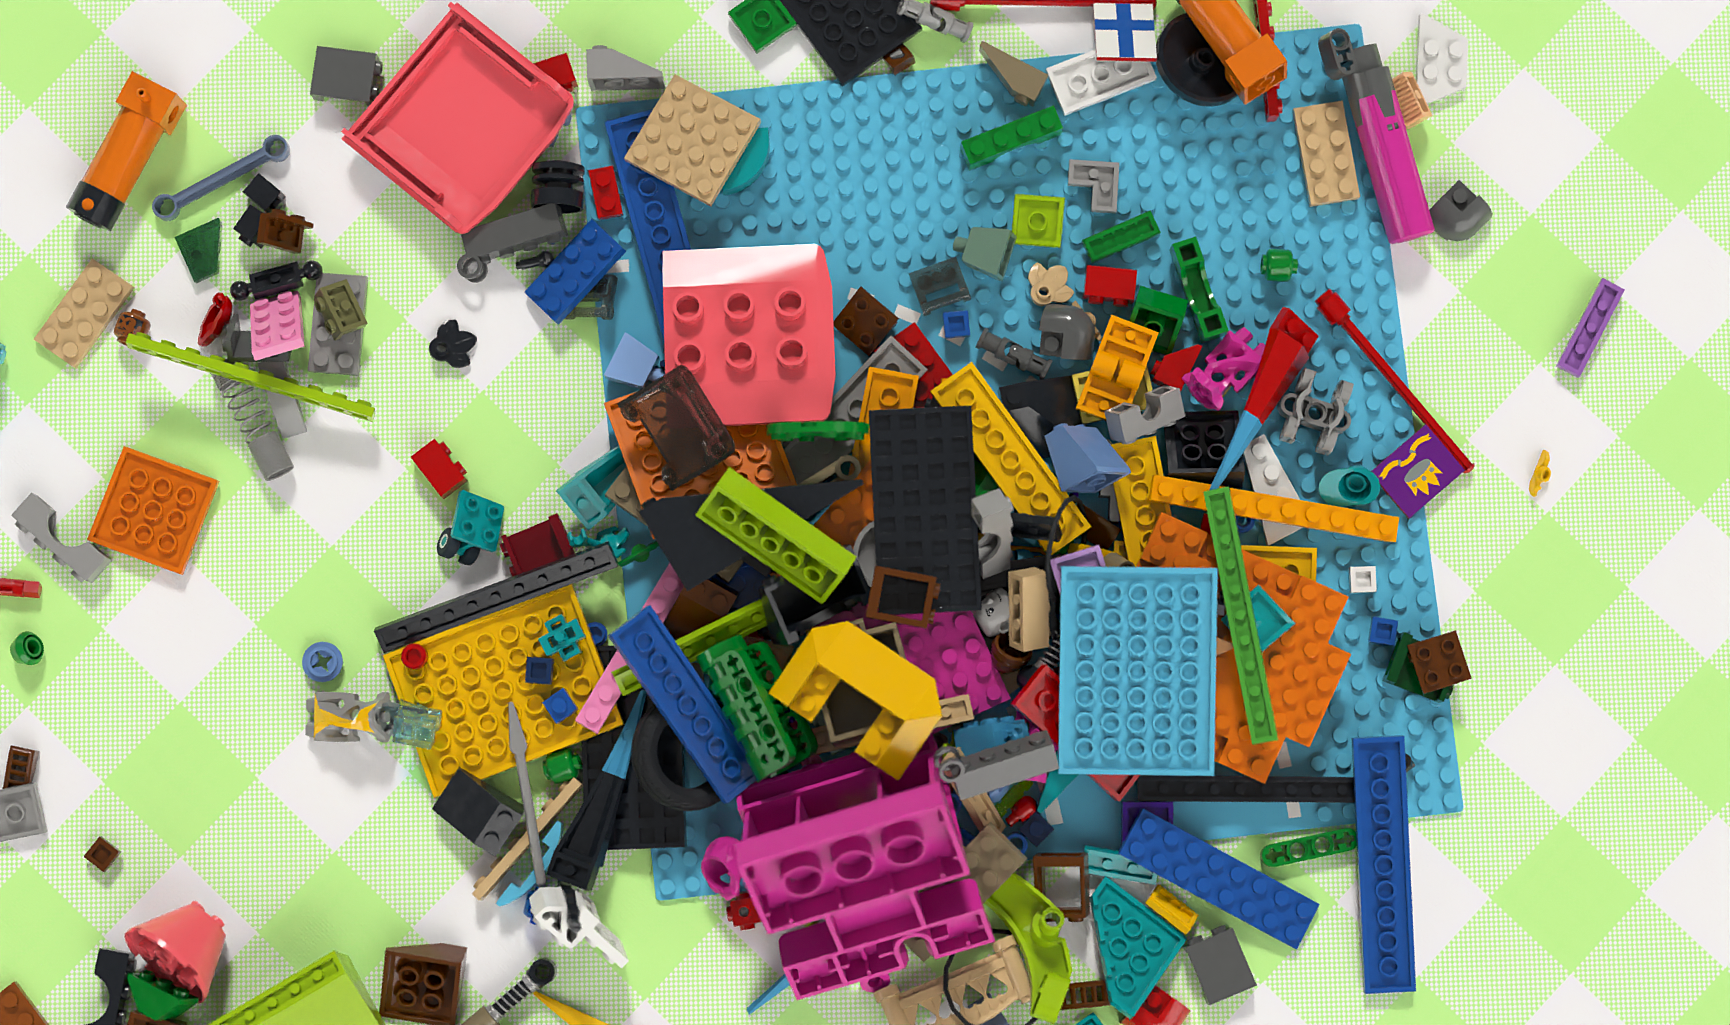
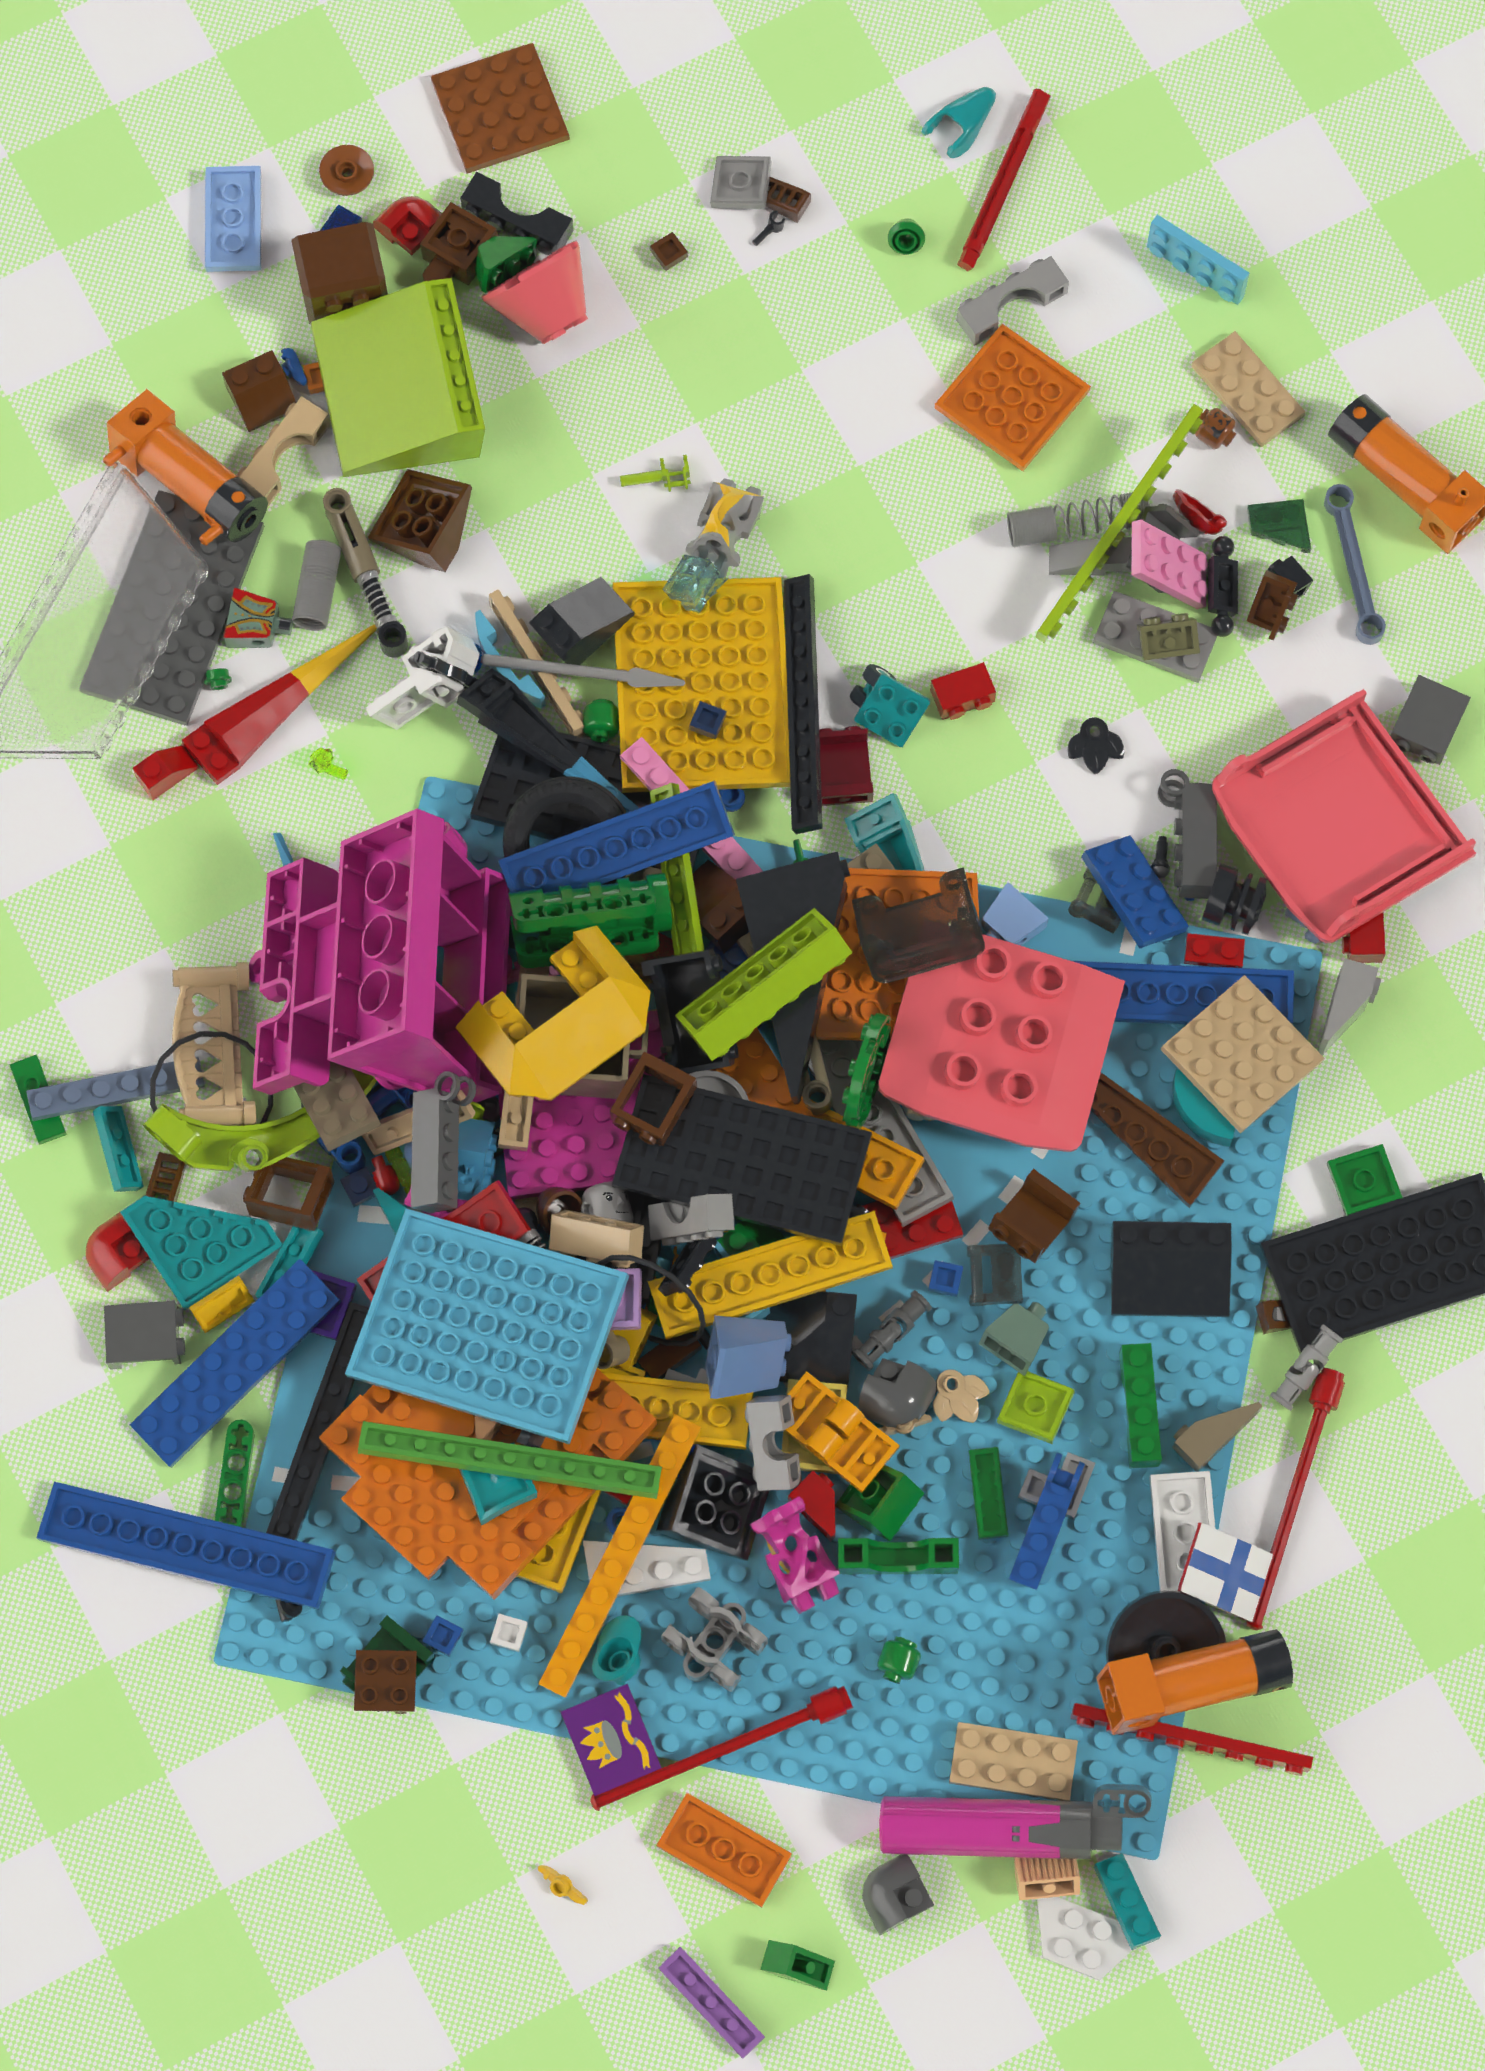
camera: 110 degrees right, 10 degrees down
(51, 772) = (772, 226): none -> black hand
(264, 194) = (1321, 601): black brick -> none
(311, 659) = (803, 508): medium blue gear -> none
(318, 792) = (658, 475): none -> lime piece
(414, 656) = (768, 605): red tile -> none
(560, 638) = (734, 749): teal piece -> none
(560, 705) = (663, 731): blue plate -> none
(603, 536) = (827, 838): teal piece -> none
(673, 993) = (321, 762): none -> clear neon green plate
(789, 182) = (1163, 1147): none -> reddish brown wing
(865, 321) = (981, 1181): reddish brown hinge -> none
(883, 268) = (1034, 1216): none -> reddish brown panel
(889, 148) = (1170, 1269): none -> black slope
(1109, 285) = (936, 1460): red brick -> none
(1136, 180) = (1045, 1524): none -> blue hinge
(1281, 361) = (787, 1620): red plate -> none
(1405, 33) = (1127, 1901): none -> teal plate
(1470, 355) = (724, 1850): none -> orange plate
(1539, 271) = (797, 1964): none -> green slope

